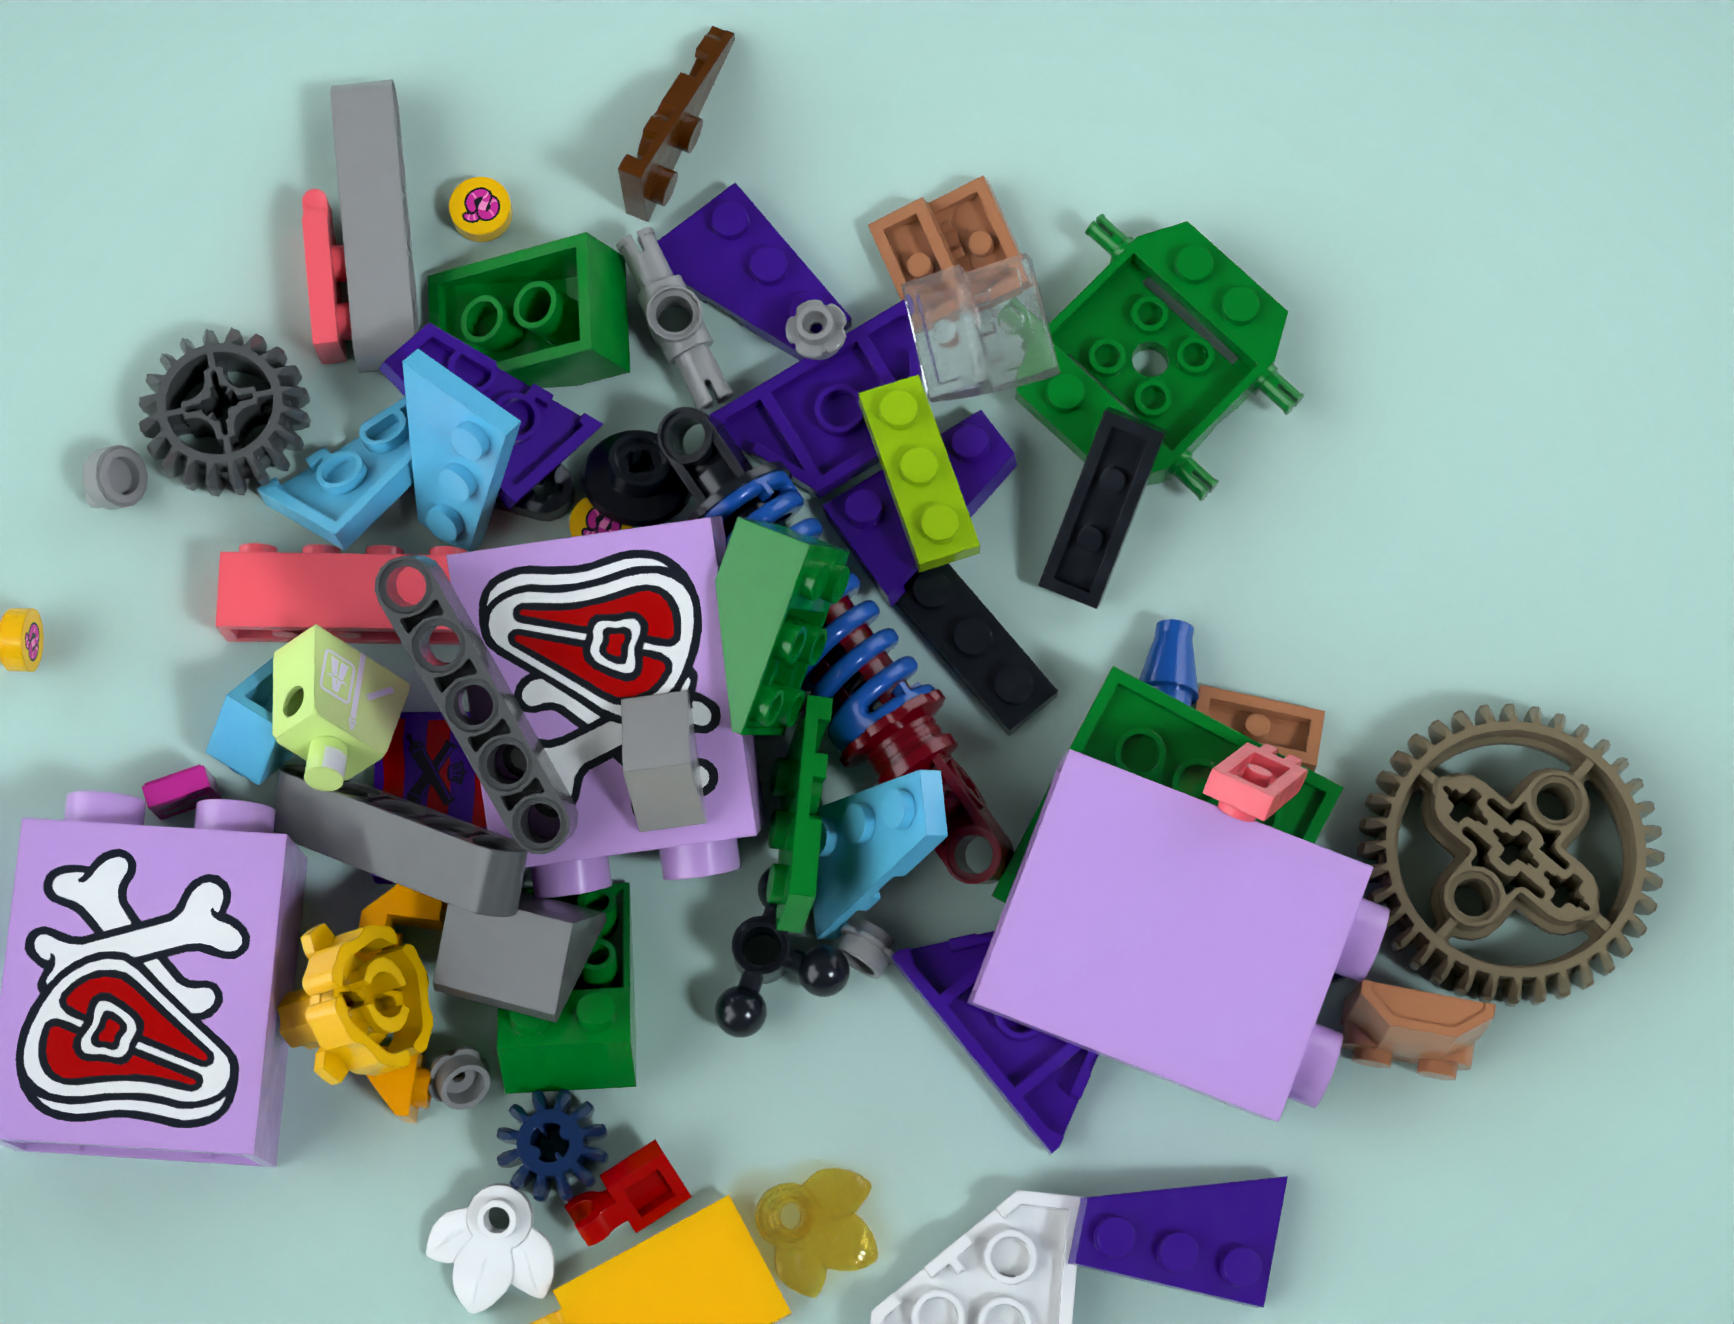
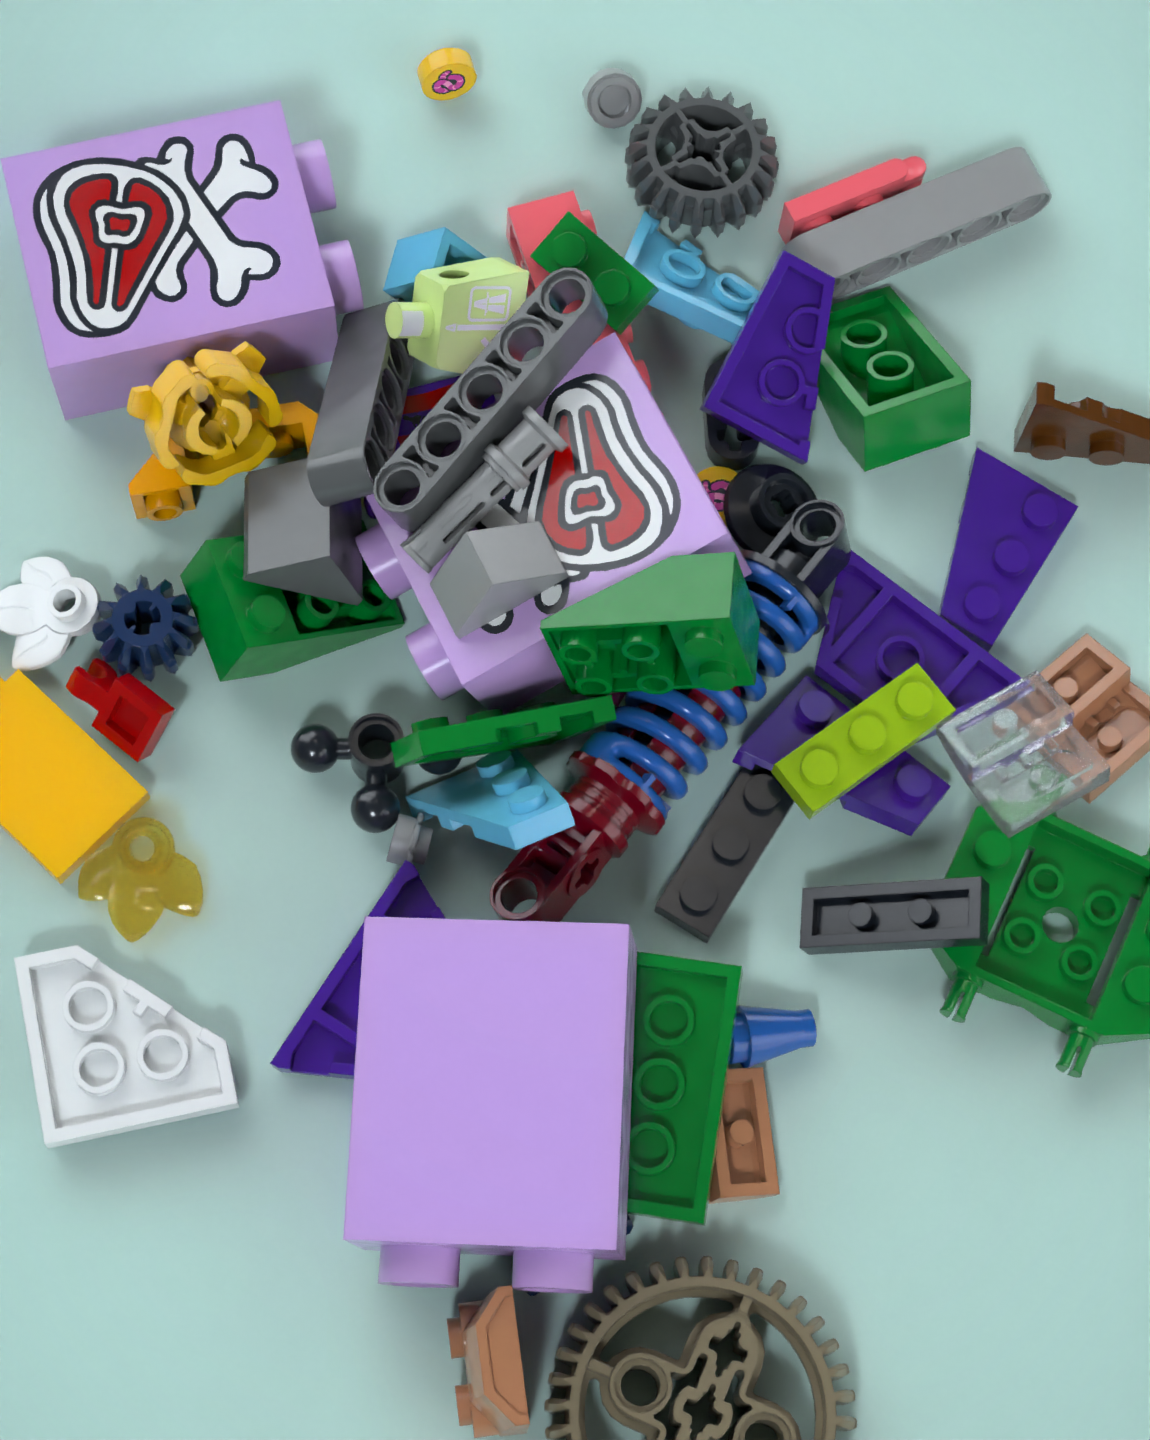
camera: 65 degrees right, 5 degrees down
(180, 791) = (364, 237): dark pink tile -> none
(329, 560) = (616, 280): none -> green plate
(456, 451) = (729, 337): medium azure wing -> none
(460, 1078) = (172, 539): light grey plate -> none
(480, 209) = (966, 308): yellow tile -> none
(555, 715) = (504, 469): none -> light grey pin
(663, 290) = (944, 471): light grey pin -> none
(822, 344) = (963, 625): light grey plate -> none
(1186, 1238) = (227, 1212): dark purple wing -> none
(1255, 782) = (665, 1116): coral hinge -> none

